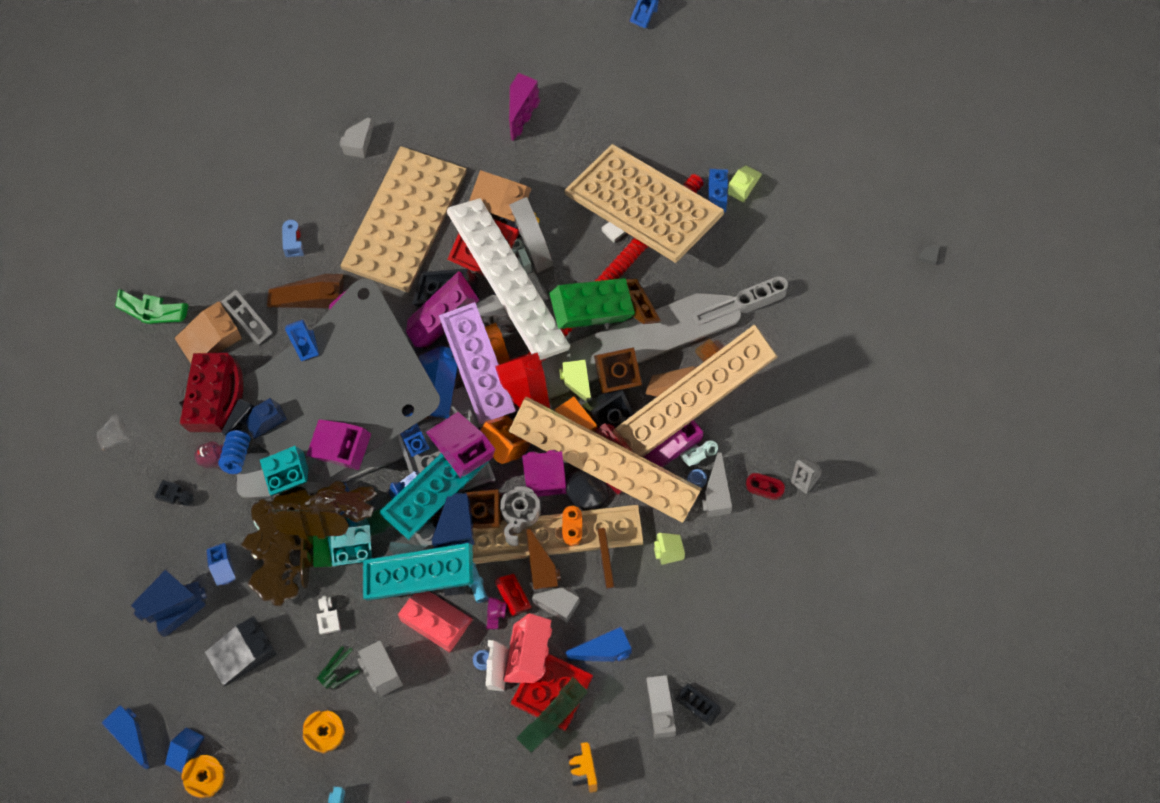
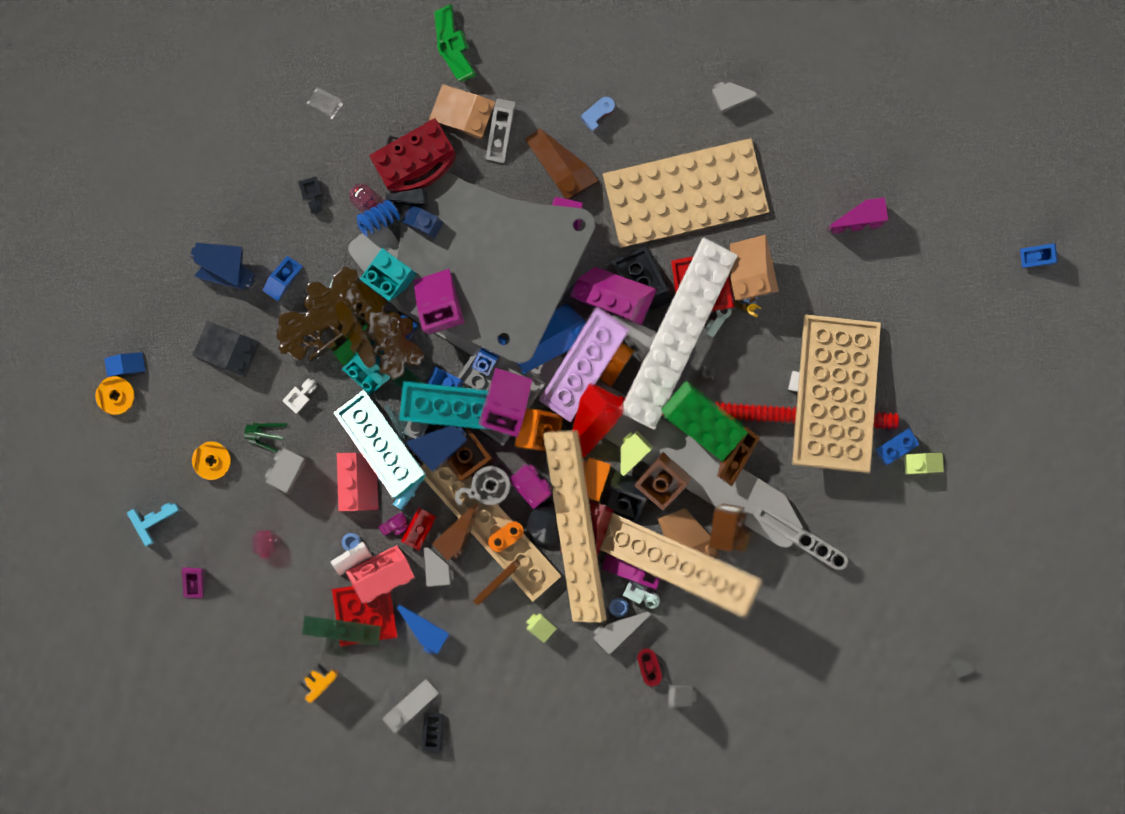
camera: 55 degrees right, 20 degrees up
(127, 732) = (105, 312): blue slope -> none
(302, 340) = (505, 205): blue slope -> none
(428, 735) = (264, 543): none -> clear pink head
(531, 234) = (737, 320): light grey slope -> none
(691, 343) = (727, 527): none -> reddish brown brick

